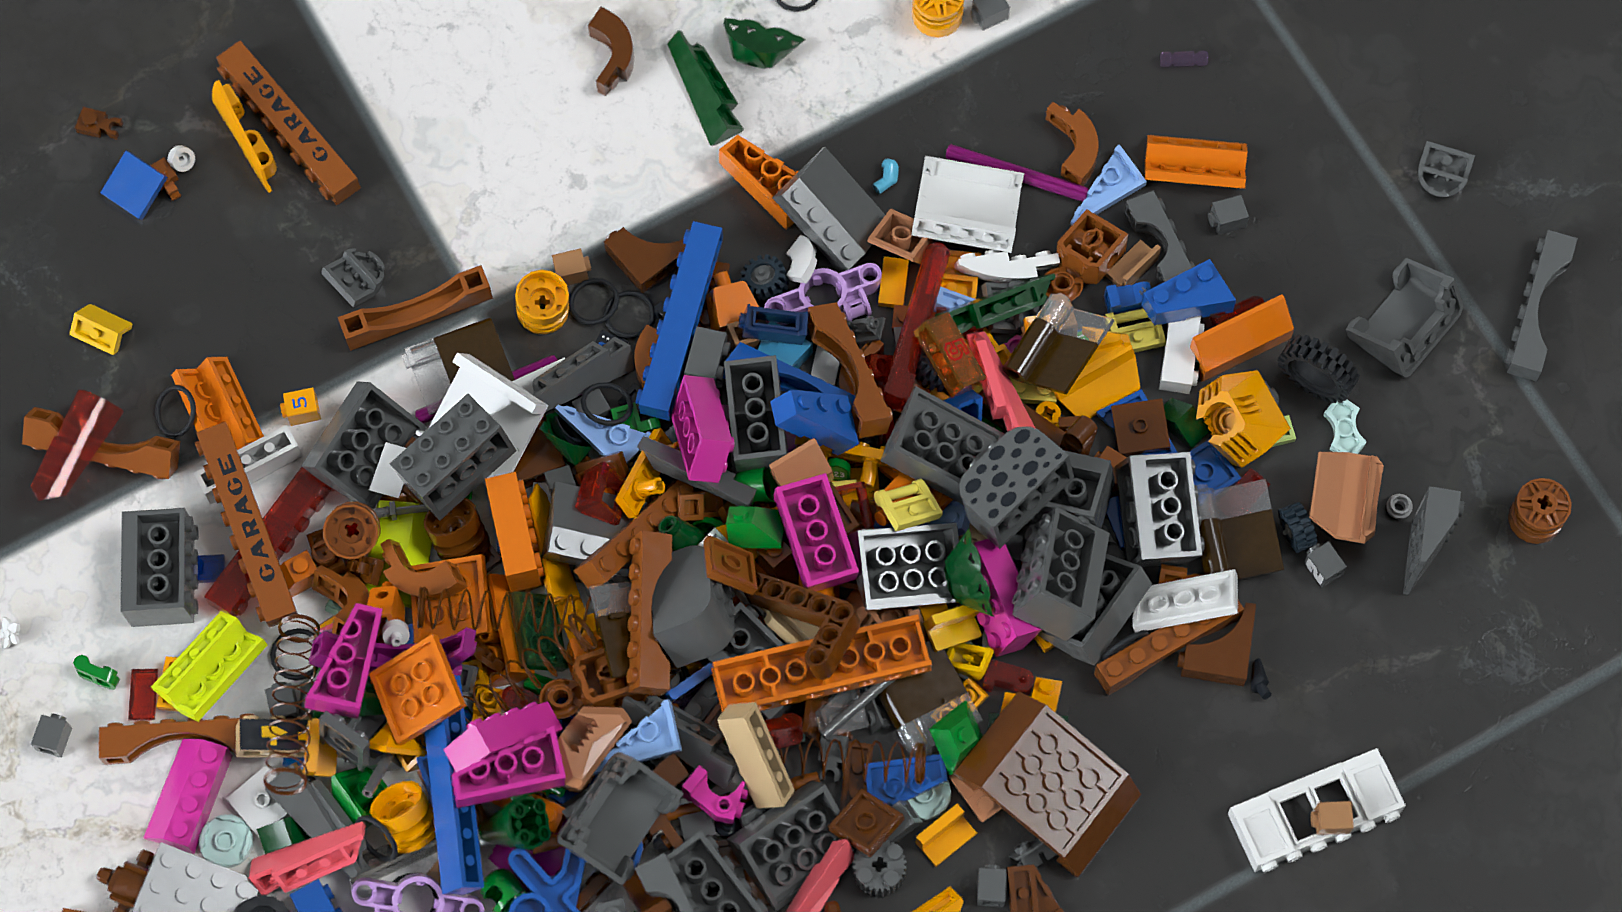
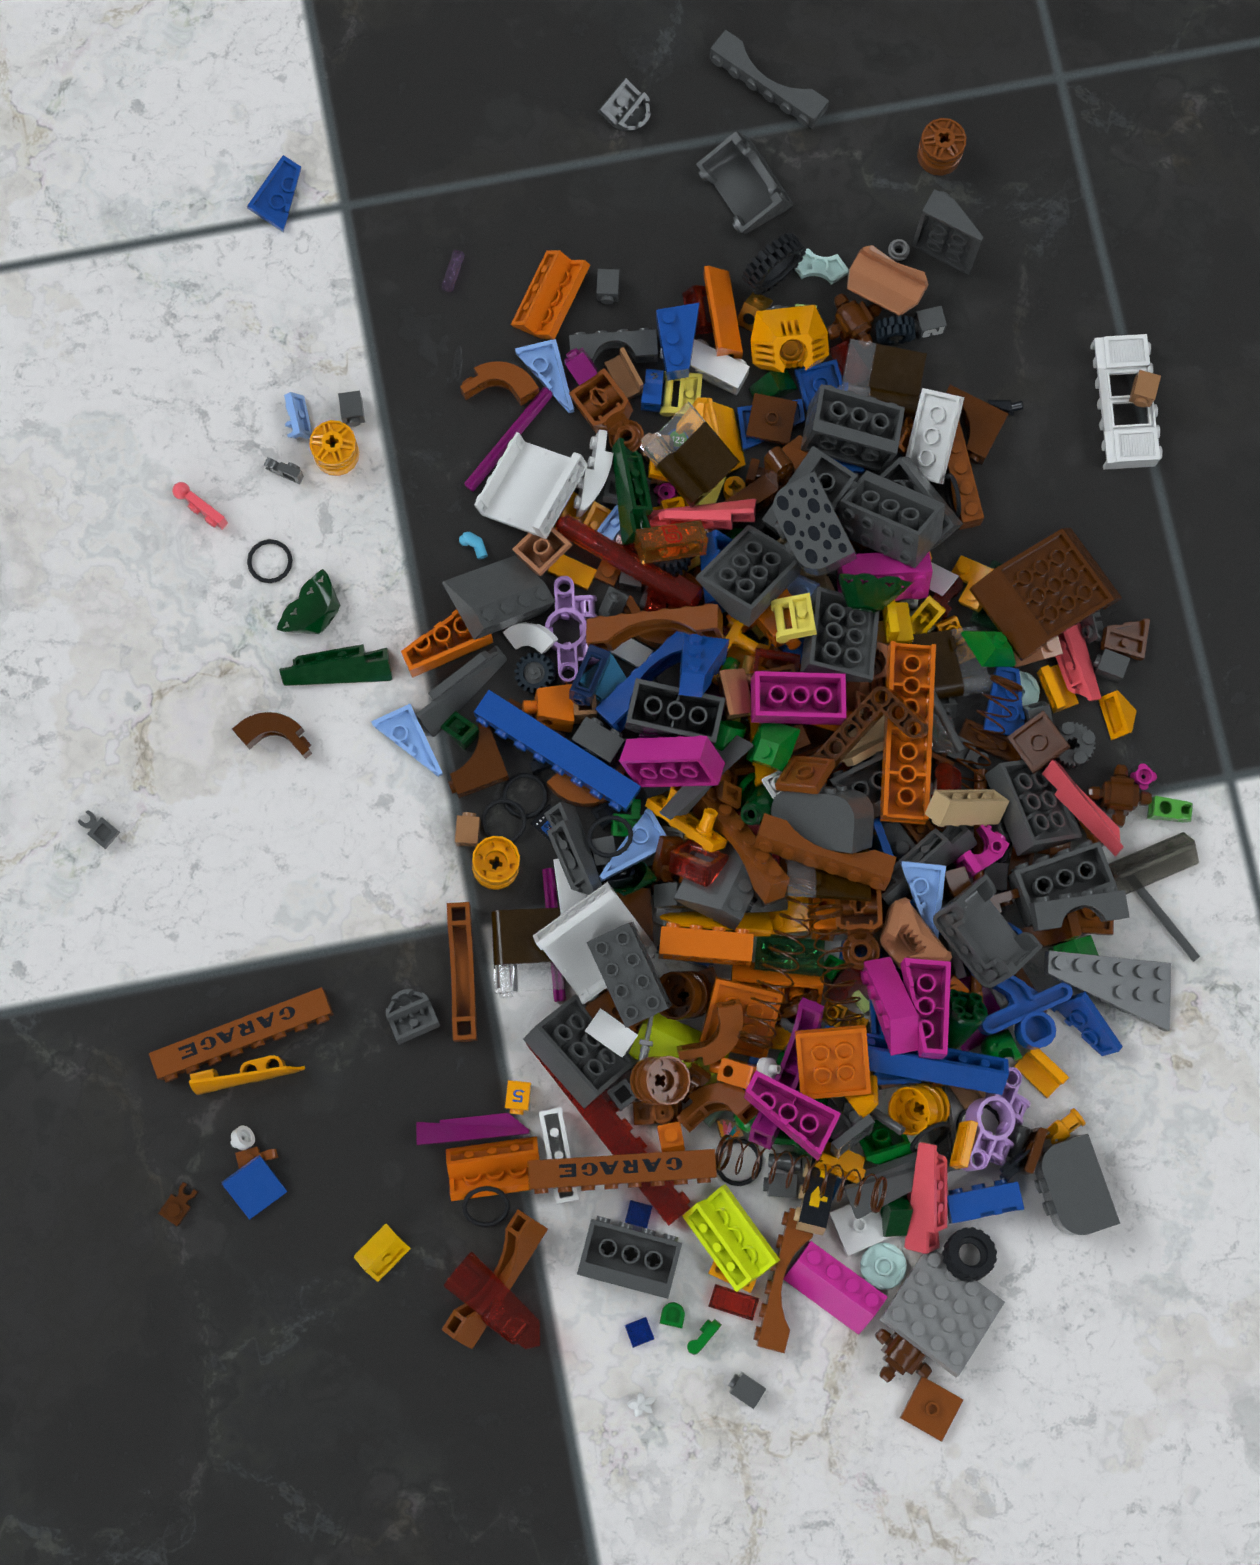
camera: 75 degrees left, 10 degrees up
(86, 608) = (639, 1332): none -> clear blue tile
(113, 637) = (672, 1315): none -> green tile
(252, 369) = (469, 1129): none -> magenta wedge
(327, 503) = (622, 1094): none -> dark grey brick
(377, 874) = (963, 1144): none -> light orange tile
(659, 173) = (405, 731): none -> light blue wing
(674, 225) = (460, 730): none -> dark green slope
(721, 209) = (459, 689): none -> dark grey wedge
(982, 846) = (1077, 665): none -> coral wedge
(1024, 661) = (941, 579): none -> white sticker
(1121, 209) = (580, 365): none -> magenta brick
(1269, 371) = (751, 305): none -> pearl gold bracket
(1290, 478) = (853, 319): none -> reddish brown piece

